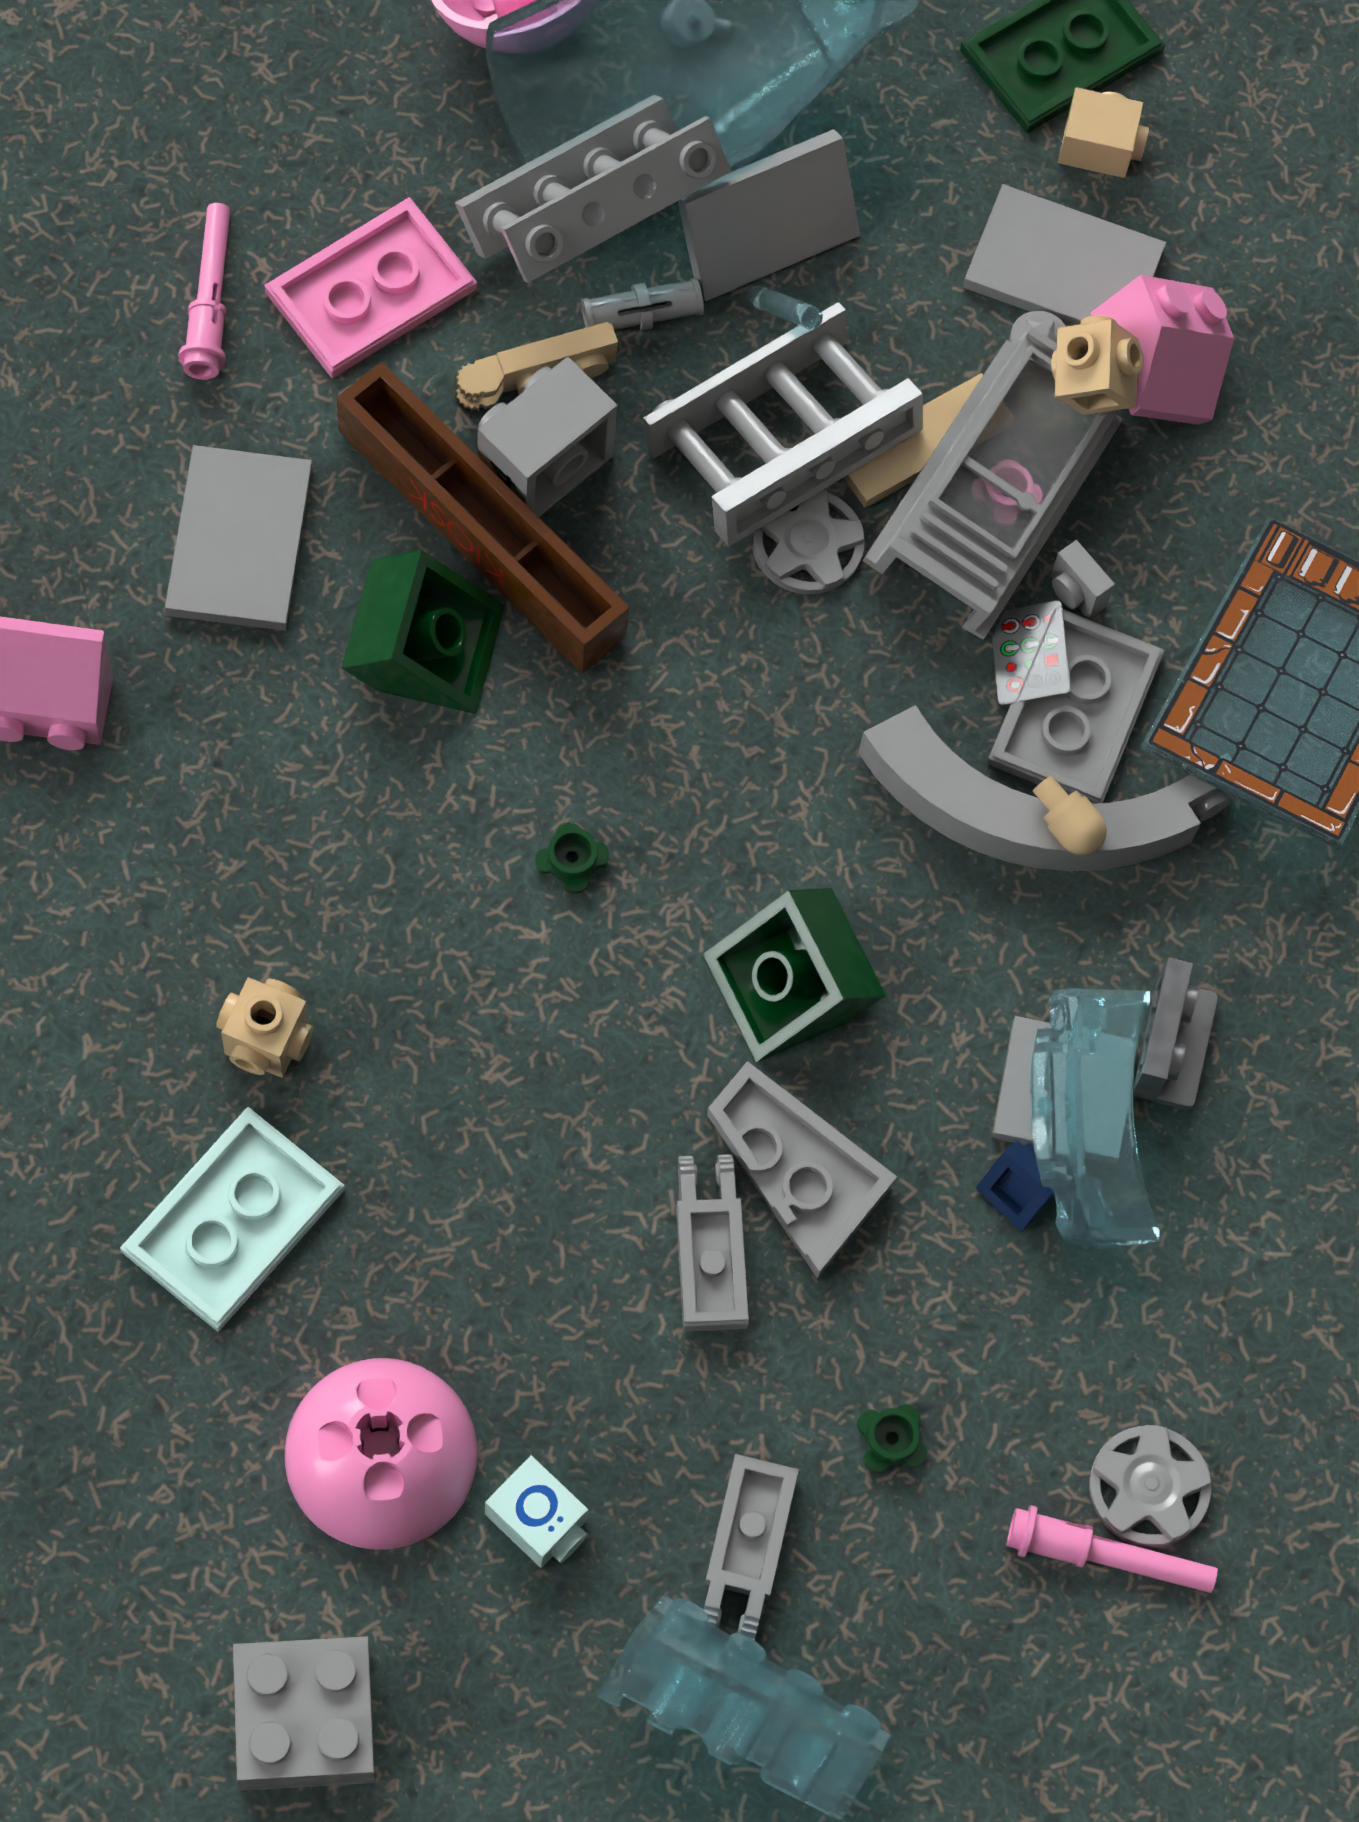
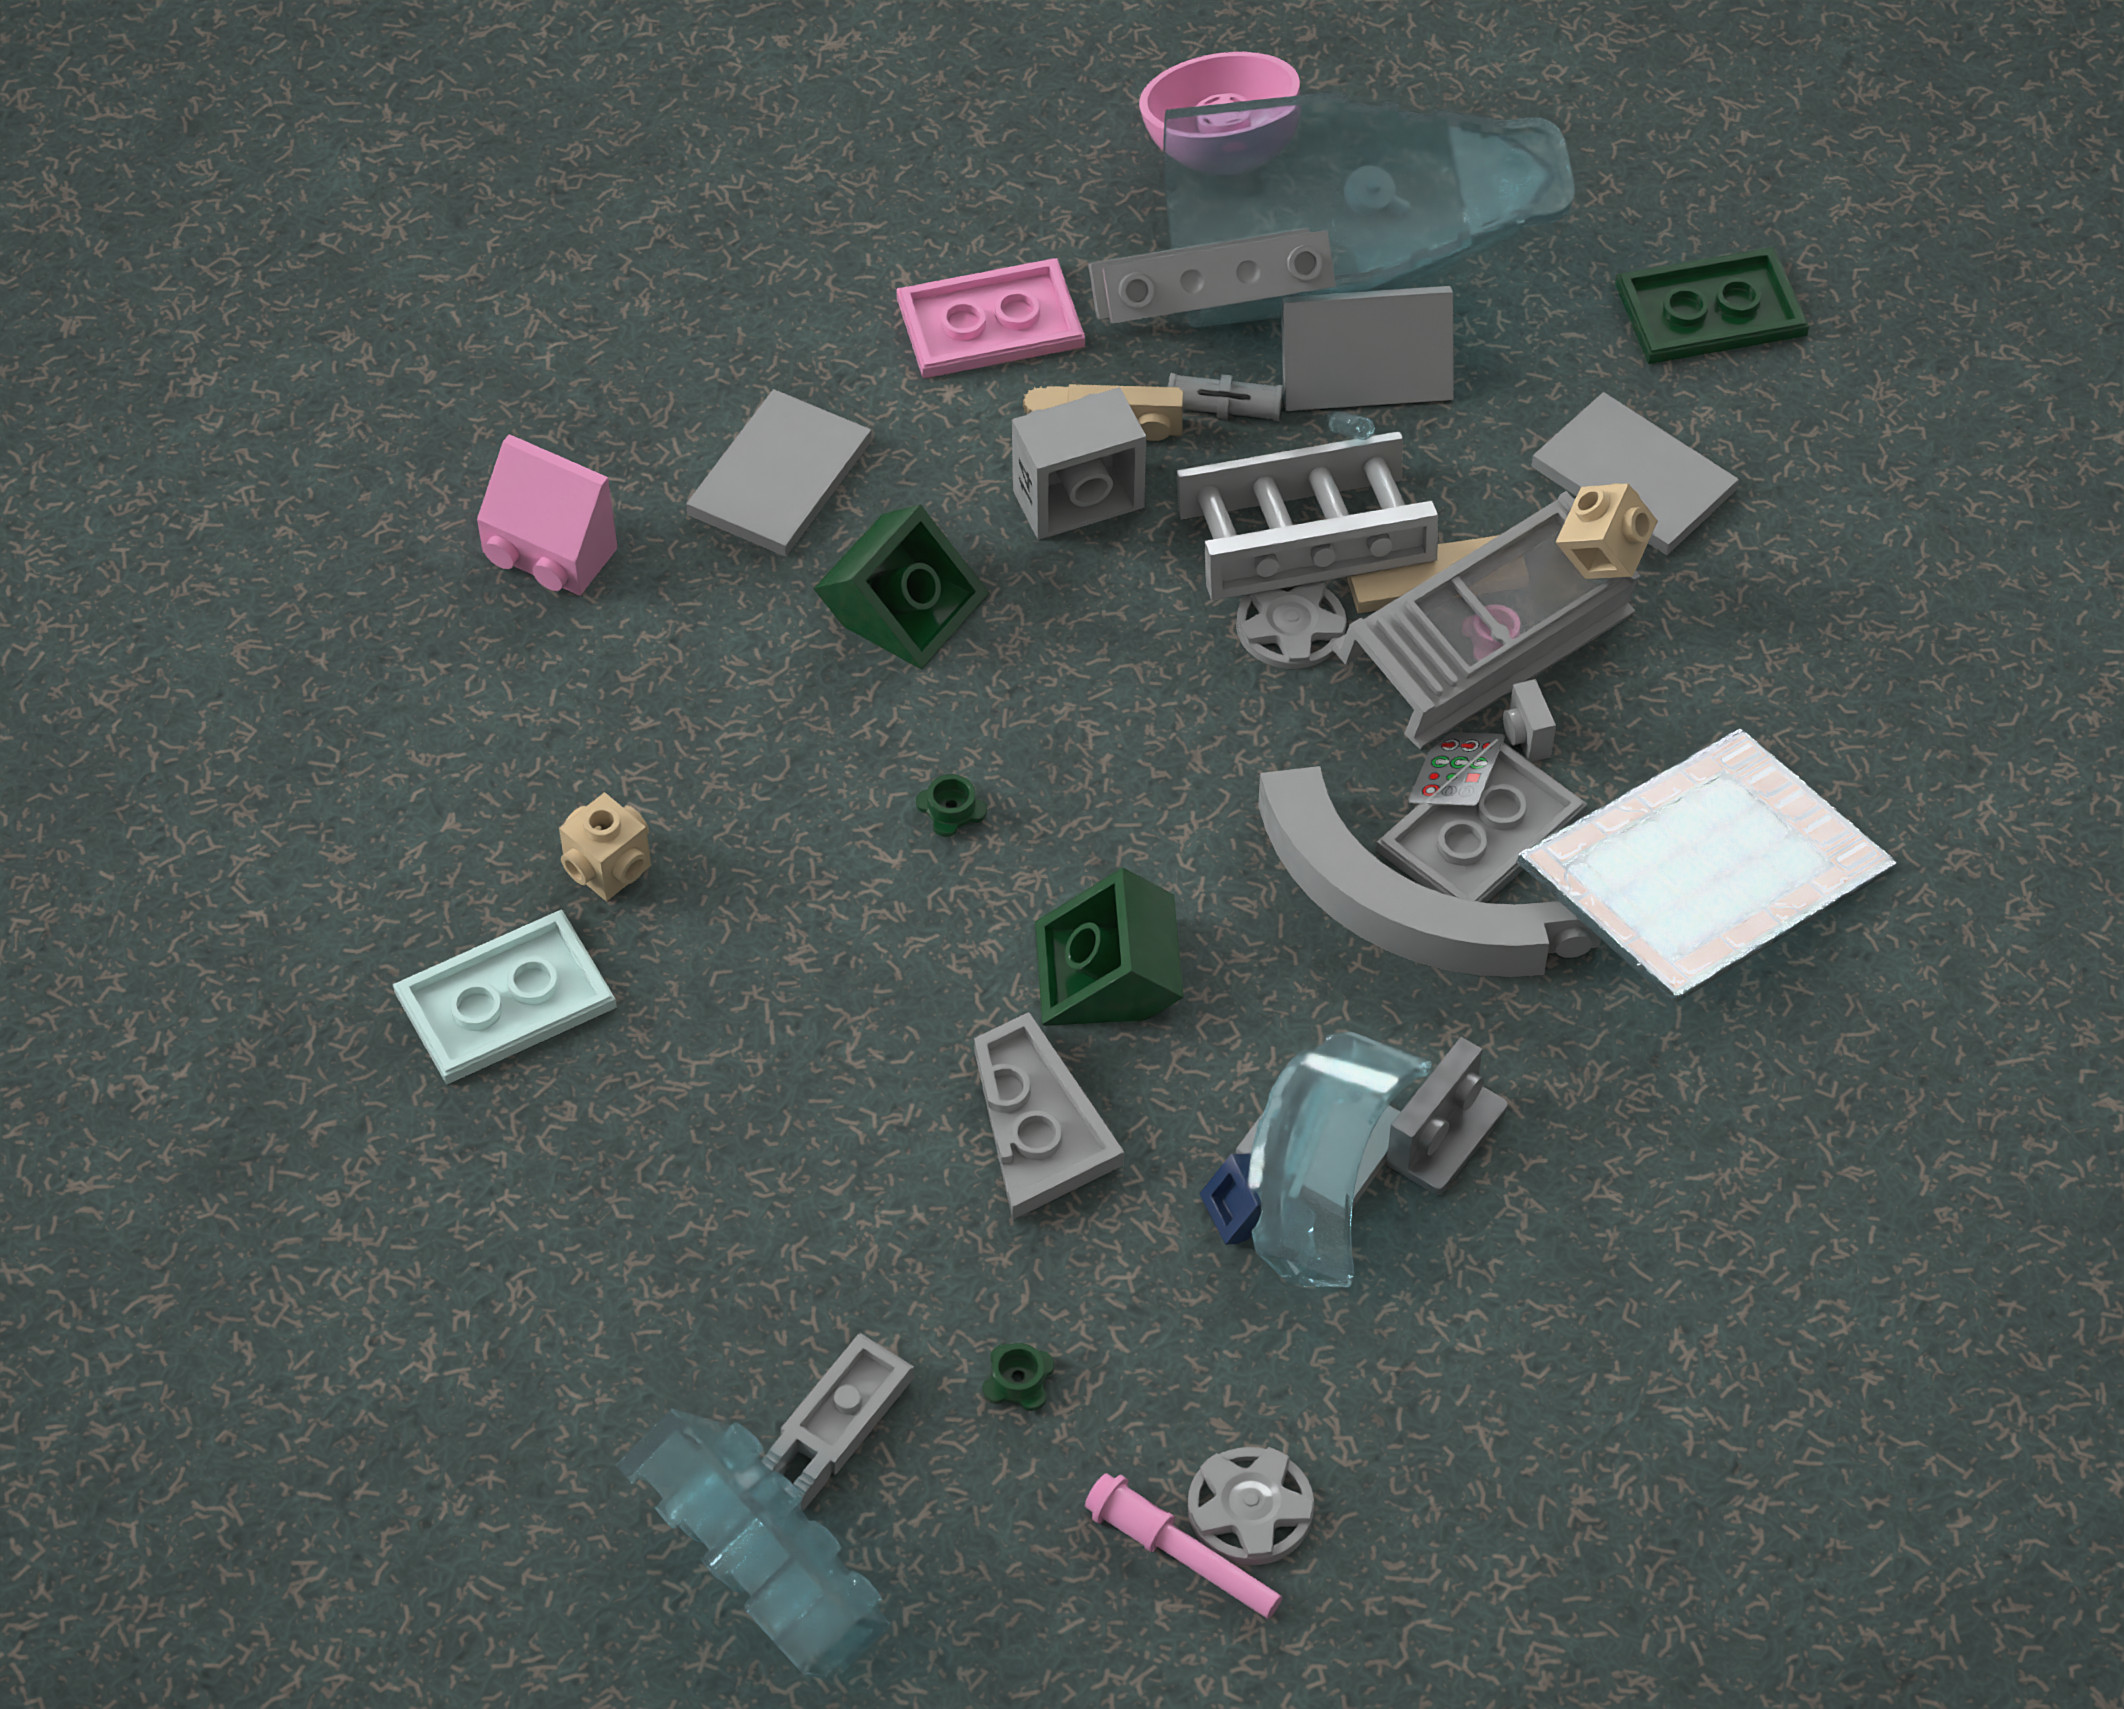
camera: 30 degrees right, 15 degrees down
(203, 352) = (817, 322): bright pink pin -> none
(303, 1713) = (357, 1409): light grey brick -> none
(377, 1493) = (534, 1254): bright pink piece -> none
(482, 517) = (996, 511): reddish brown brick -> none
(538, 1513) = (653, 1319): light aqua brick -> none
(711, 1251) = (921, 1161): light grey hinge -> none
(1071, 818) = (1421, 895): tan cylinder -> none
(1103, 132) = (1714, 375): tan brick -> none
(1181, 342) = (1699, 552): bright pink slope -> none

